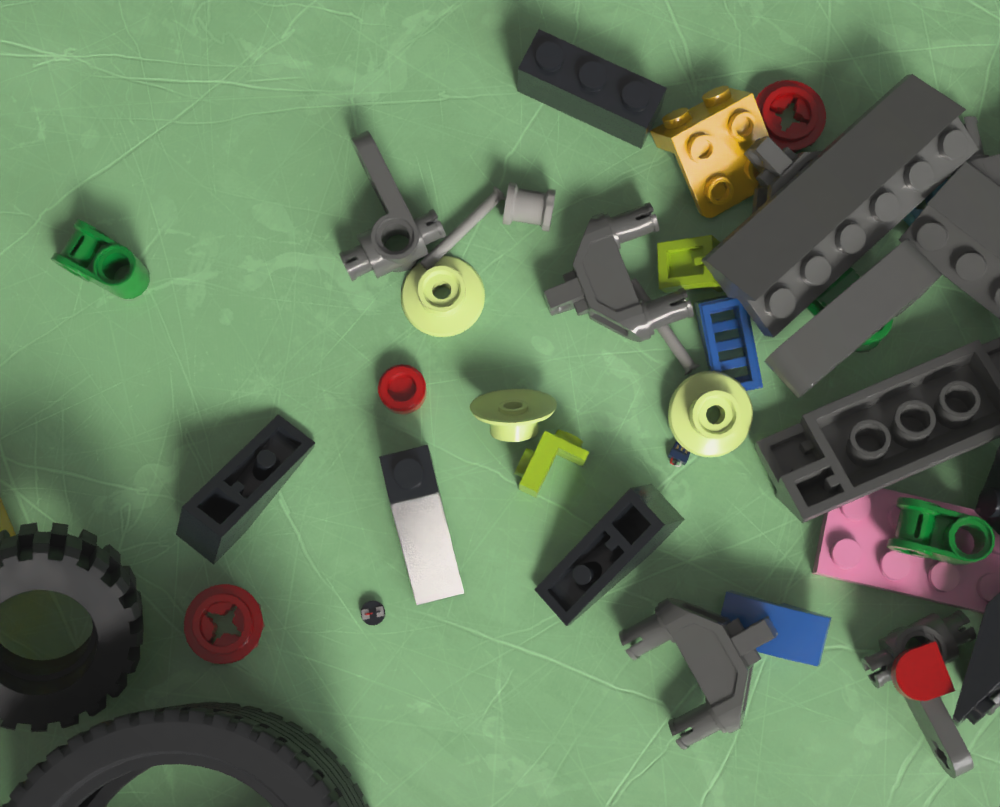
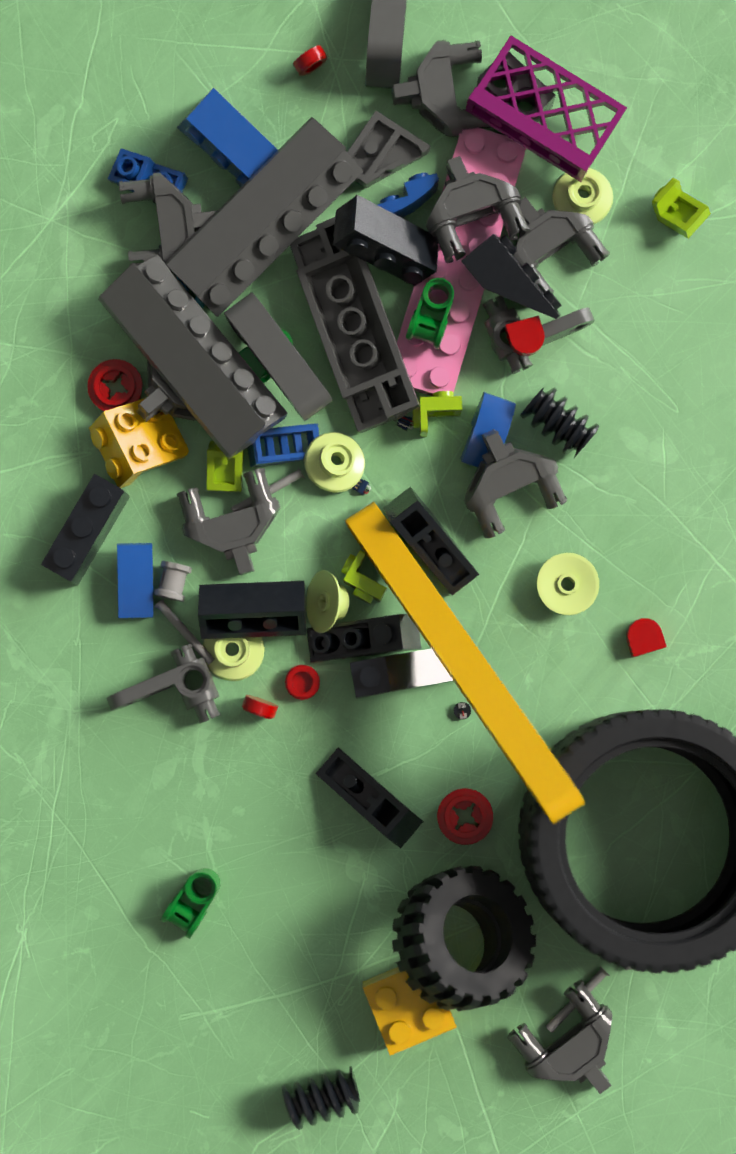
camera: 90 degrees left, 5 degrees up
(364, 331) = (259, 707): none -> red tile
(412, 612) = (466, 665): none -> yellow beam
(466, 471) = (364, 638): none -> black slope
(495, 311) = (252, 609): none -> black brick
(527, 157) = (135, 580): none -> blue slope
(566, 781) = (584, 581): none -> yellowish green piece
(775, 509) = (404, 423): none -> dark blue piece
(798, 732) = (560, 421): none -> black piece
(806, 558) = (440, 405): none -> lime bracket

